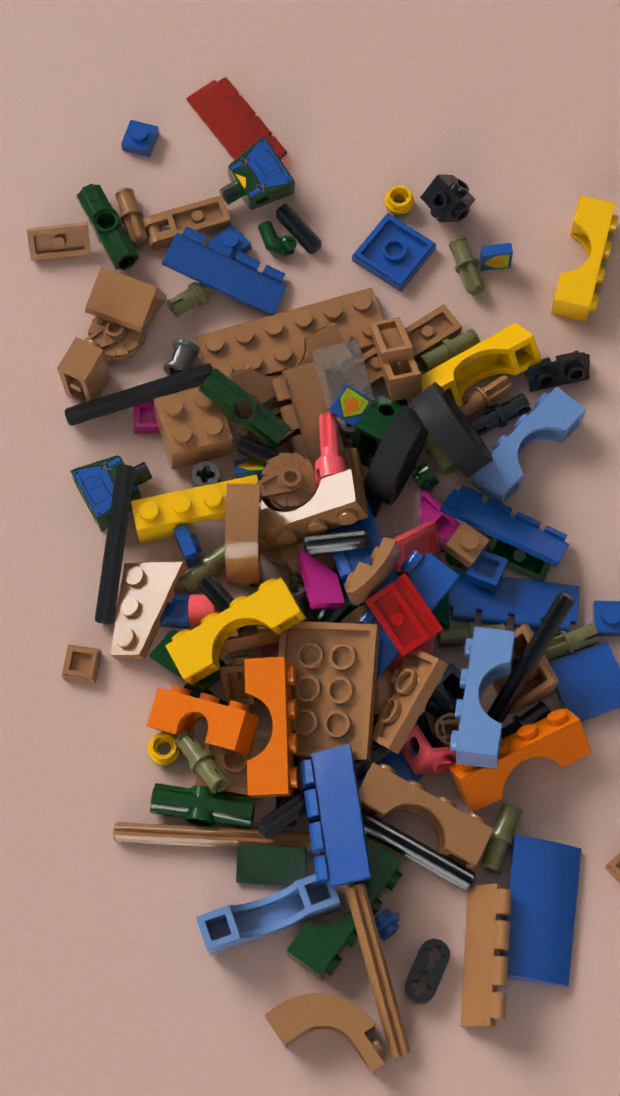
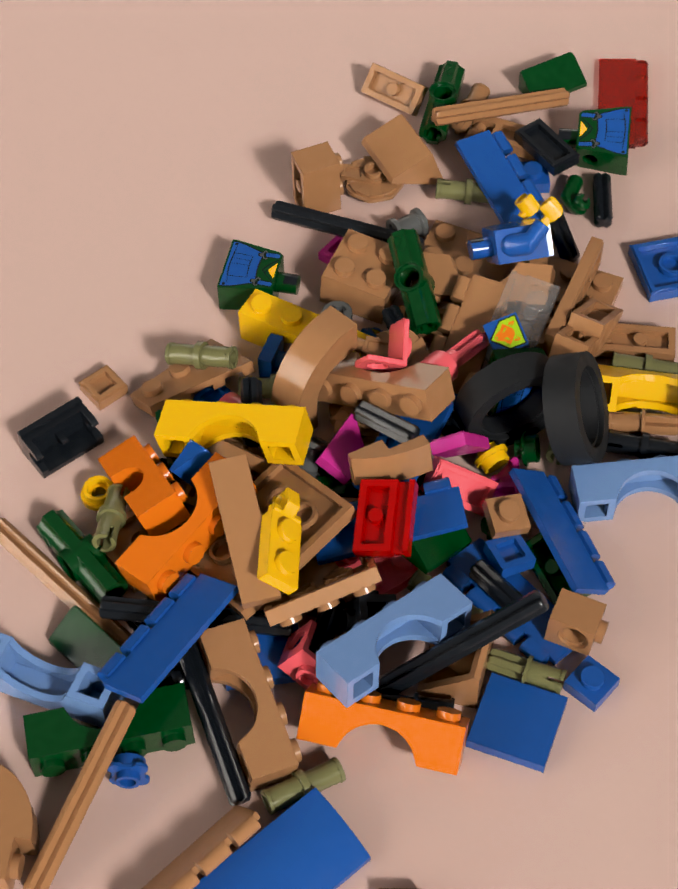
camera: 40 degrees right, 15 degrees down
(95, 729) = (60, 437): none -> black hinge
(115, 544) = (217, 308): black axle -> none
(140, 138) = (529, 58): blue plate -> none
(144, 586) = (201, 355): none -> olive pin
(159, 201) = (500, 106): none -> medium nougat axle
(169, 145) = (553, 74): none -> dark green slope
(225, 213) = (546, 147): none -> black tile
(228, 675) = (190, 461): none -> blue slope
(287, 316) = (520, 237): none -> torso
(296, 281) = (564, 239): none -> black axle
(296, 479) = (398, 350): none -> coral bracket
(322, 701) = (242, 527): none -> medium nougat tile
(356, 690) = (281, 543): none -> yellow hinge
(361, 332) = (576, 290): none -> medium nougat tile
(395, 518) = (459, 444): none -> dark pink tile
(409, 504) = (493, 458): none -> yellow plate
(435, 975) = (127, 843): black beam -> none
(503, 600) = (493, 583): none -> black axle
(574, 580) = (576, 622): none -> medium nougat brick

